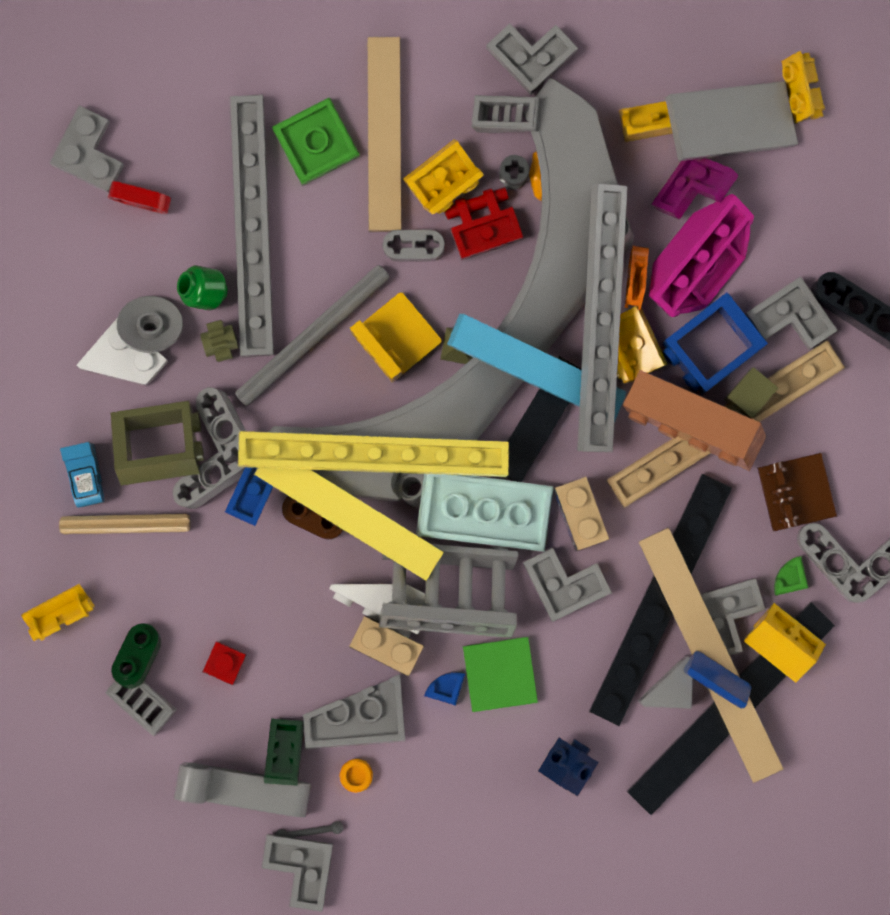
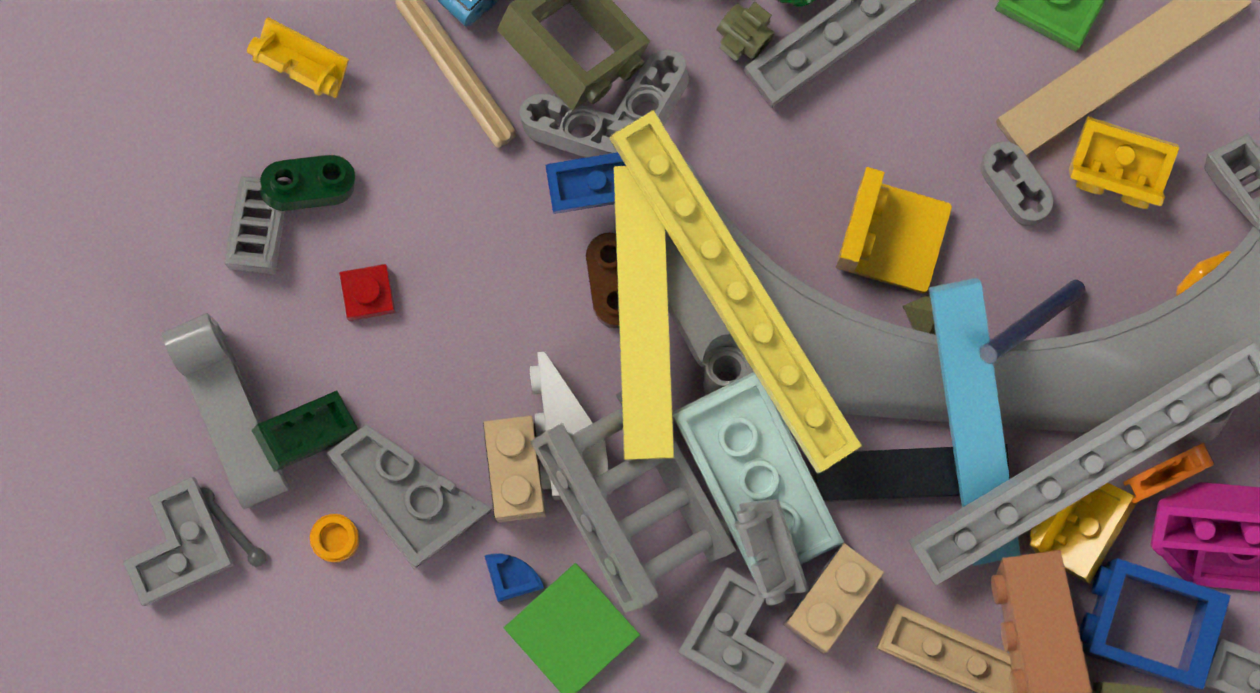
camera: 60 degrees right, 5 degrees down
(312, 335) = (827, 136): light grey axle -> none
(487, 232) = (1092, 256): red plate -> none
(502, 296) = (1031, 321): none -> dark blue bar
(522, 168) = (1189, 227): dark grey bush -> none
(523, 528) = (769, 539): none -> light grey hinge

